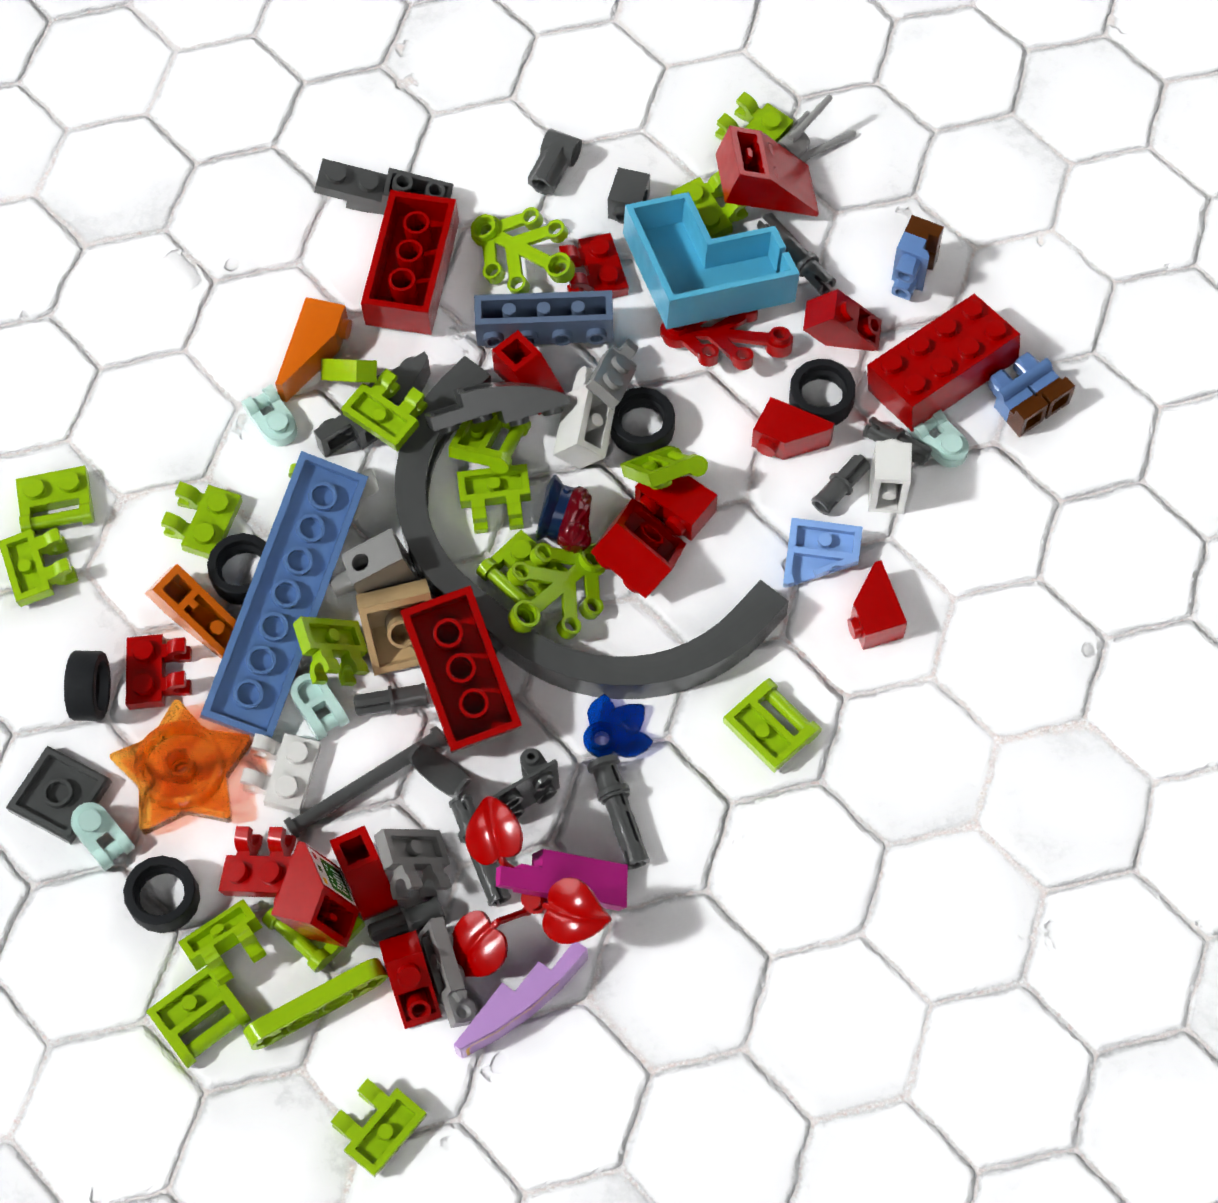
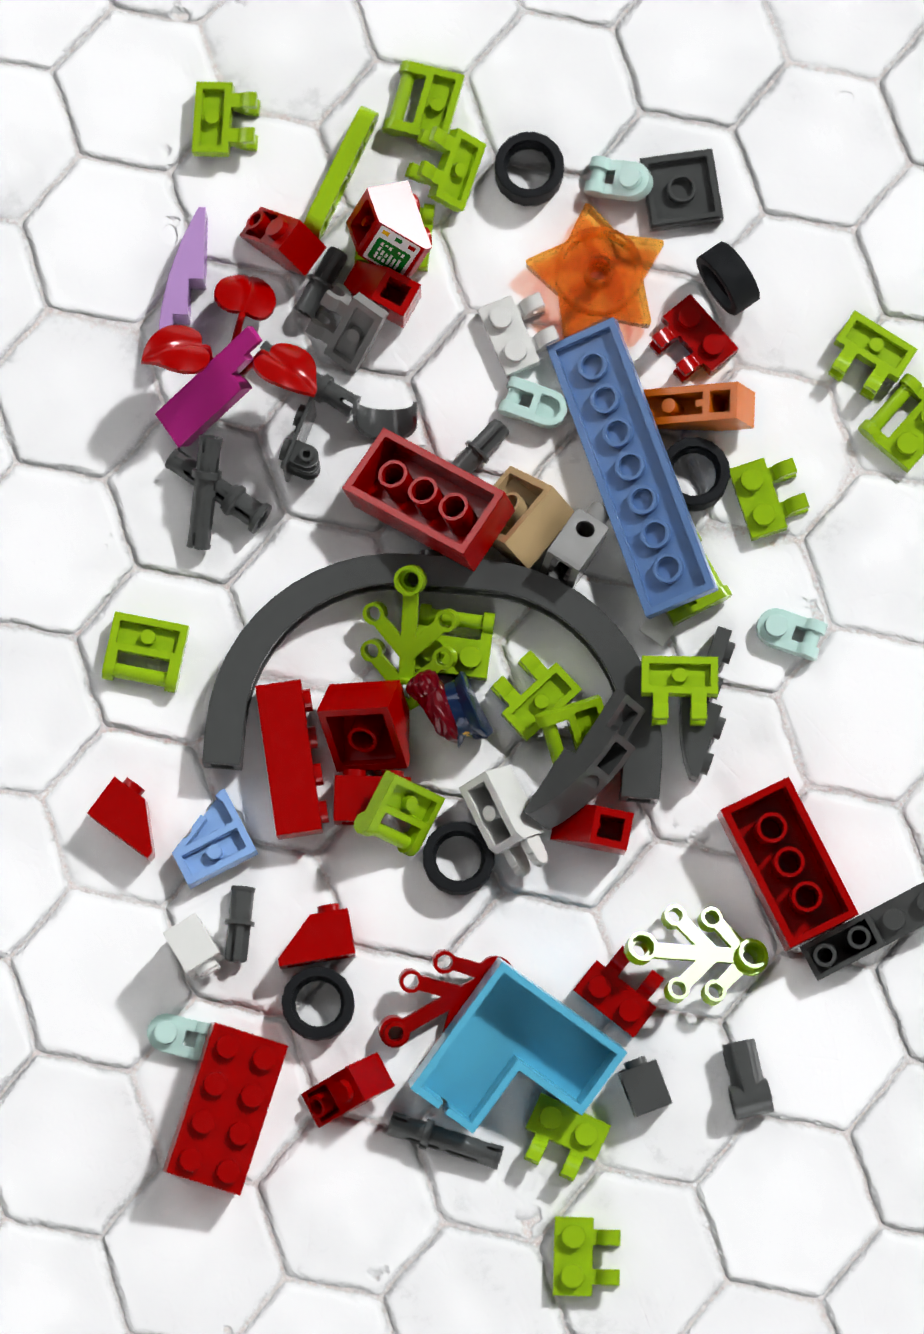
camera: 140 degrees right, 15 degrees up
(252, 874) = (467, 233): red plate -> none
(316, 336) = (812, 731): orange slope -> none
(332, 639) = (565, 455): lime plate -> none
(349, 370) = (746, 705): lime piece -> none
(360, 785) = (445, 364): dark grey bar -> none
(446, 973) = (256, 263): light grey hinge -> none
(545, 317) = (619, 892): sand blue brick -> none
(613, 373) = (512, 876): light grey hinge -> none
(619, 726) = (273, 564): clear blue plate -> none
(623, 814) = (204, 492): none -> dark grey pin
(716, 568) = (290, 759): none -> red brick
(763, 173) = (524, 1193): red slope -> none
(797, 140) = (531, 1265): light grey plant -> none
(880, 431) = (216, 1001): dark grey axle -> none
(914, 255) = (327, 1200): medium blue hips -> none
(1030, 396) = (124, 1154): hips -> none

